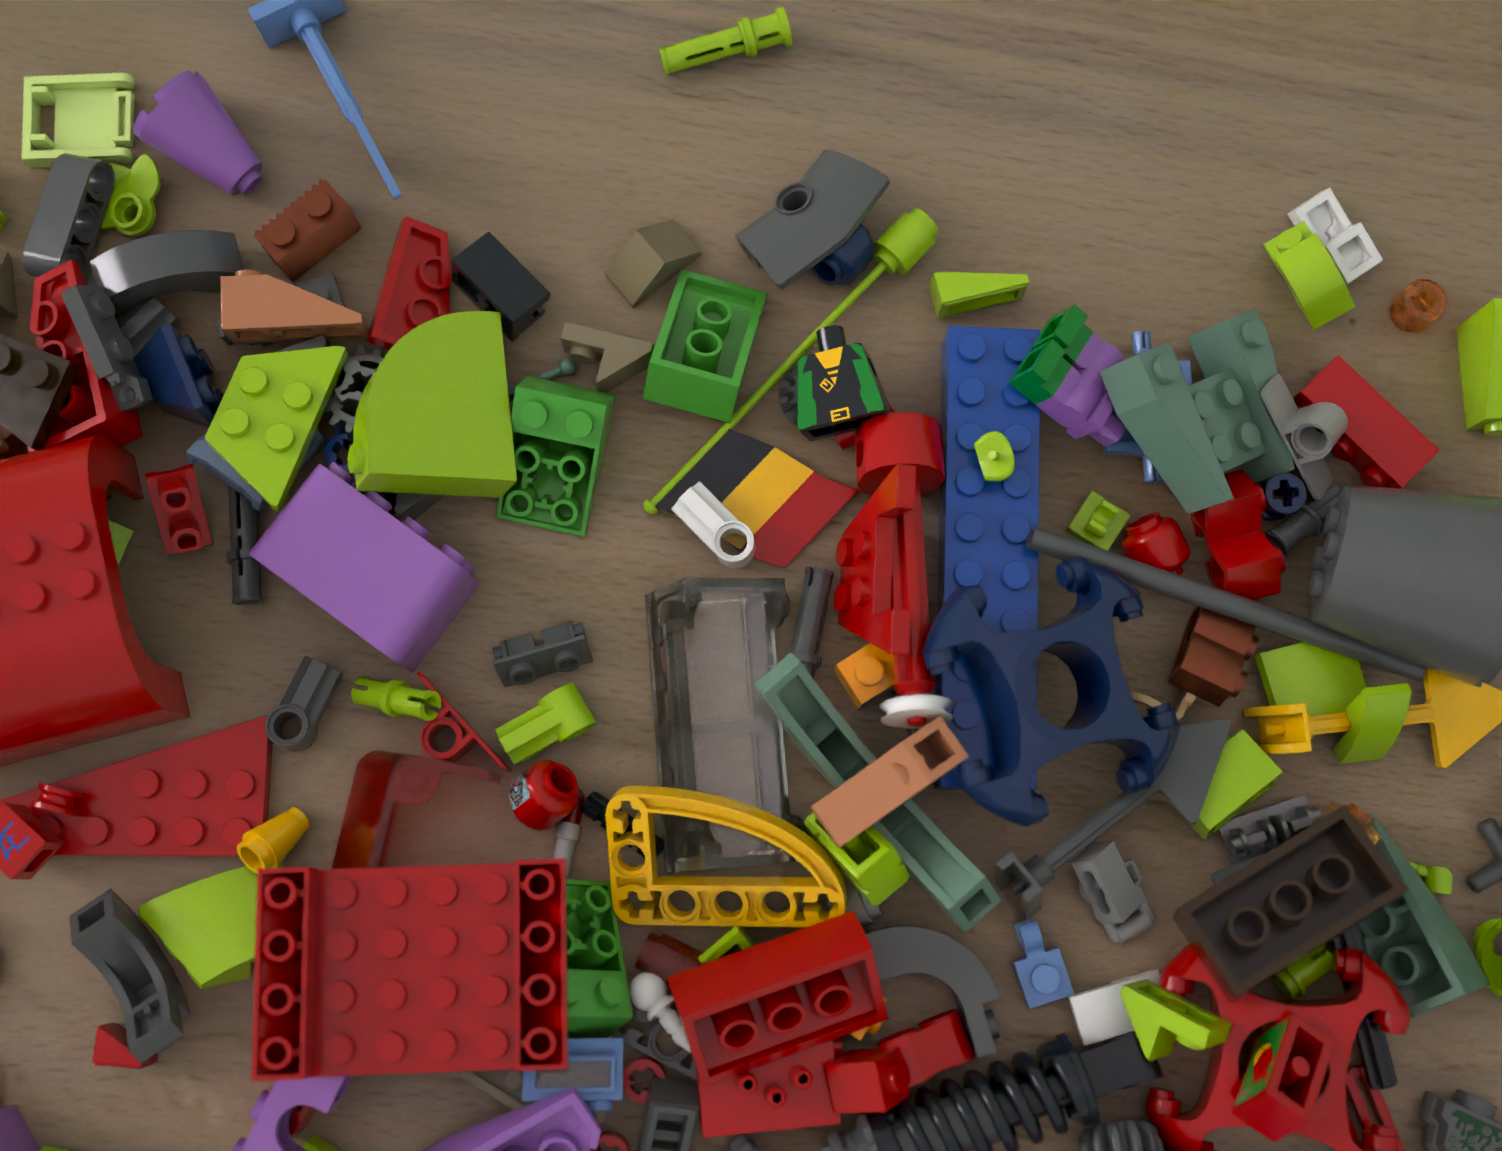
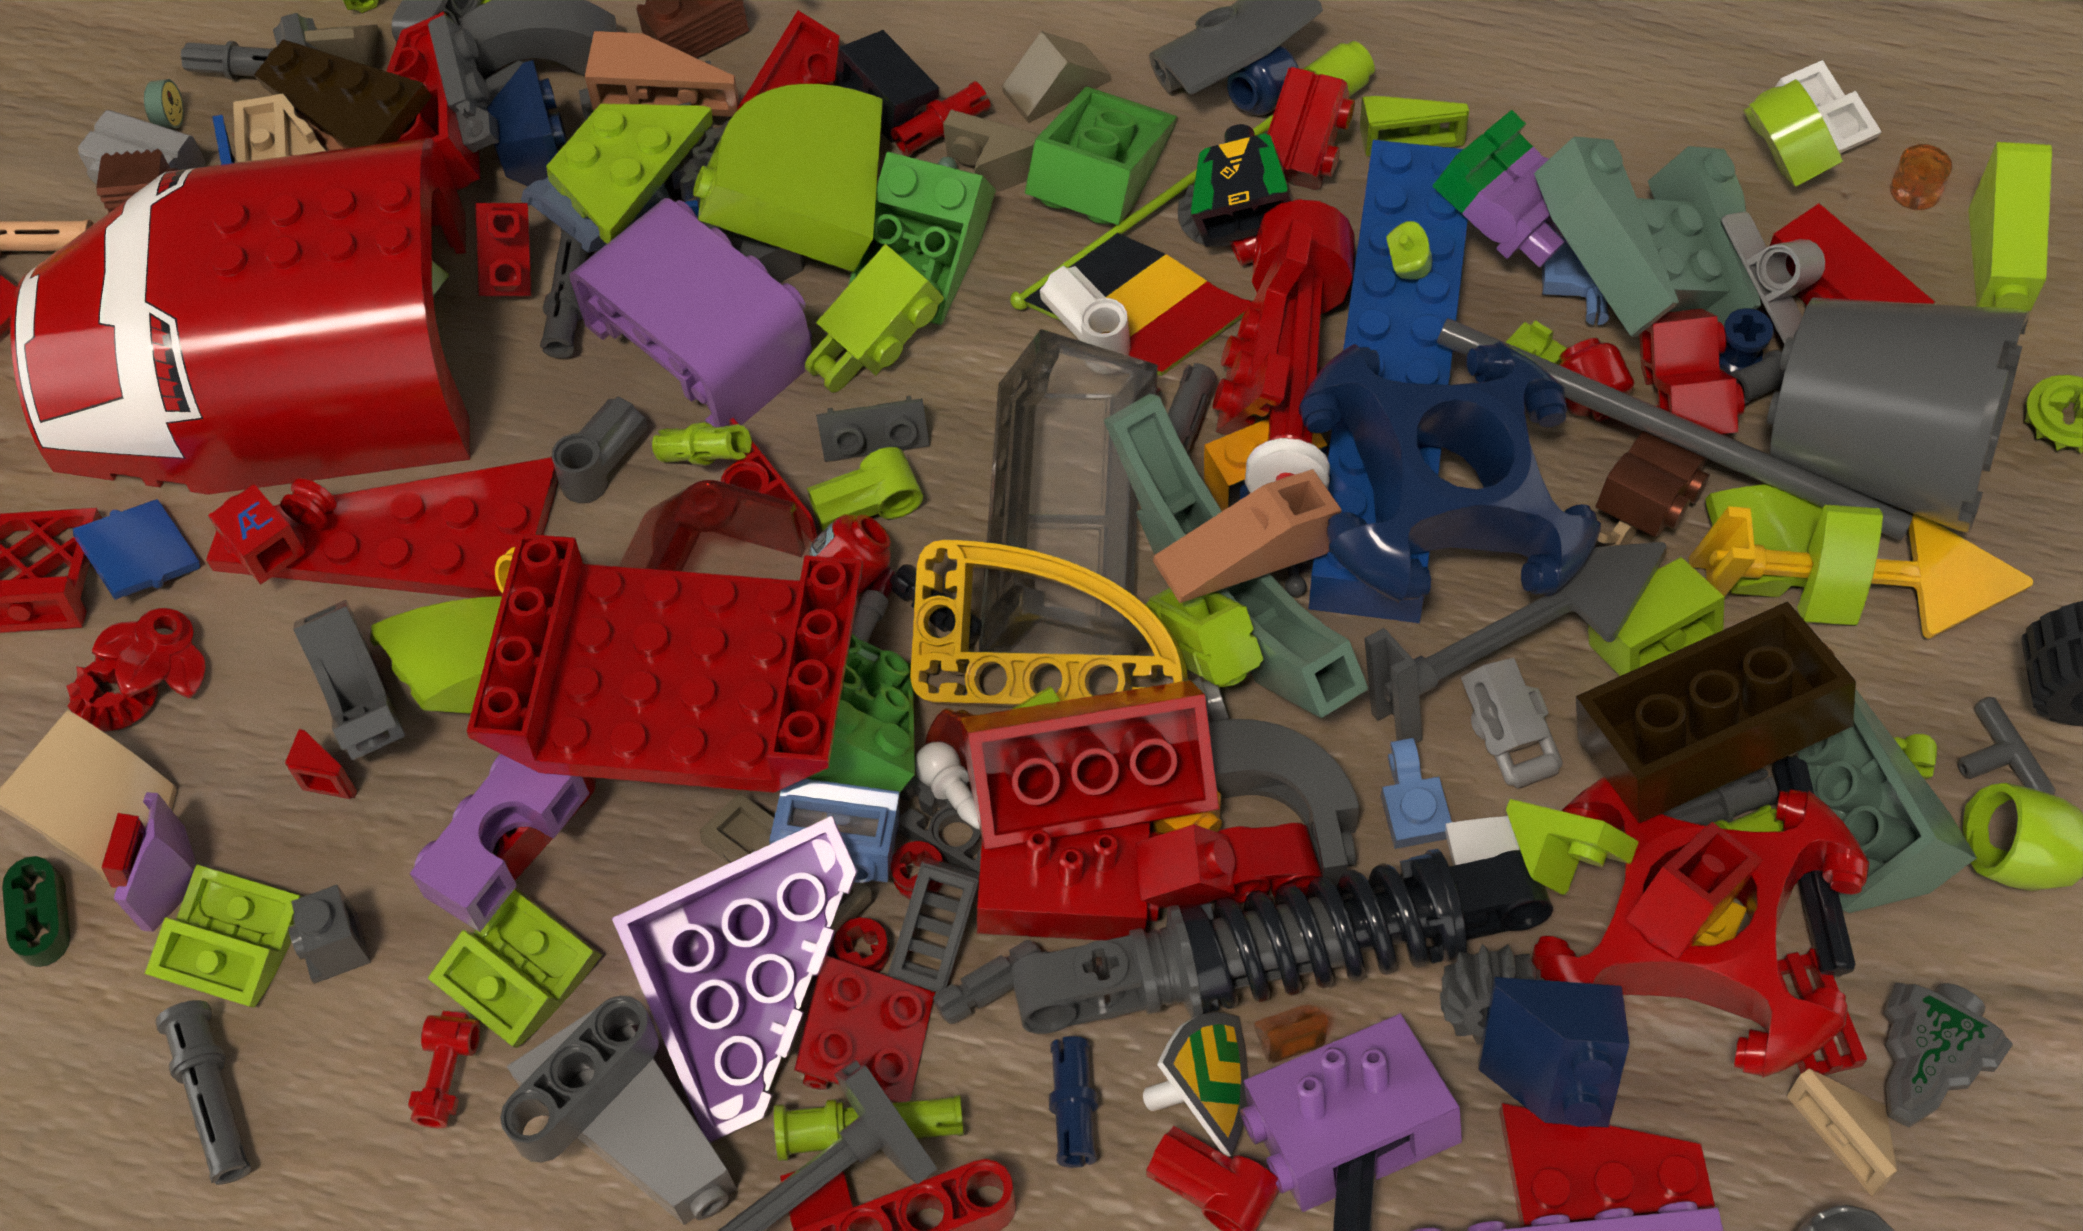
camera: 15 degrees right, 20 degrees down
(529, 550) = (873, 319): none -> lime brick
(552, 318) = (929, 124): none -> red pin
(887, 309) = (1307, 125): none -> red brick

